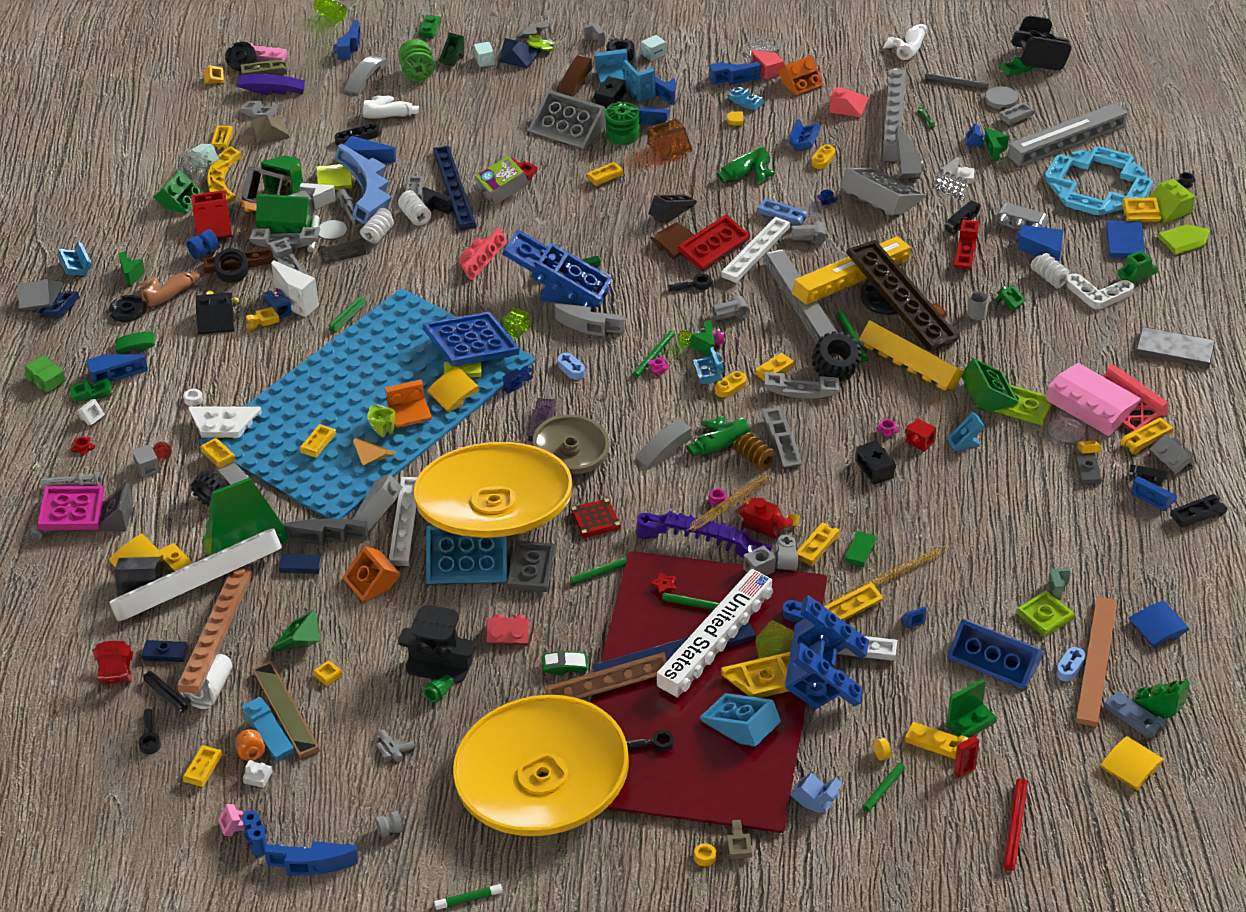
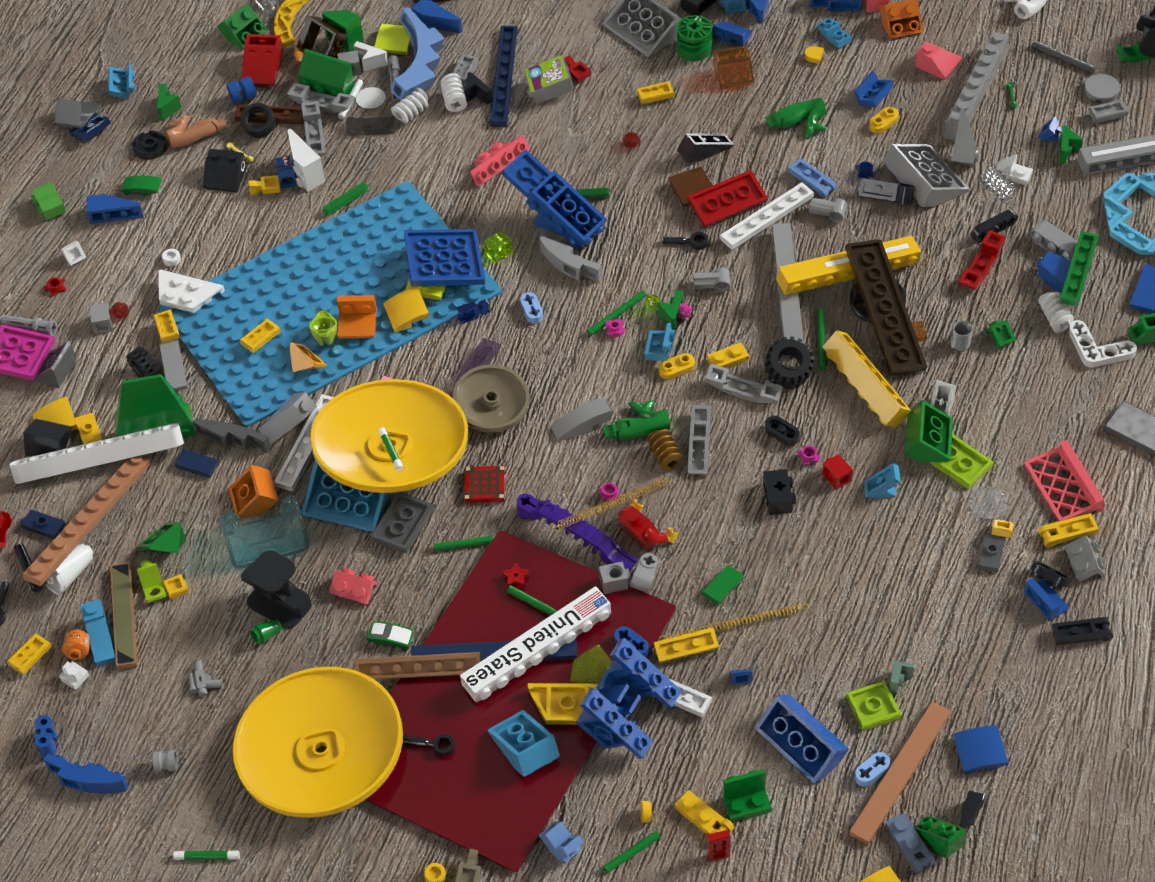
camera: 20 degrees right, 10 degrees up
(85, 391) = (83, 229): green slope -> none
(231, 820) = (30, 716): bright pink tile -> none
(301, 671) = (151, 580): none -> lime bracket
(398, 610) = (280, 533): none -> clear light blue windscreen
(504, 497) = (390, 449): none -> green bar
(600, 215) = (631, 140): none -> clear red plate
(817, 543) = (682, 568): yellow plate -> none
(854, 208) = (886, 190): none -> black plate
(854, 413) = (783, 430): none -> black plate
(987, 352) = (943, 396): none -> white slope
(1057, 231) = (1079, 268): none -> green plate
(1091, 398) = (1029, 473): bright pink slope -> none
(1175, 667) = (972, 807): none -> black slope

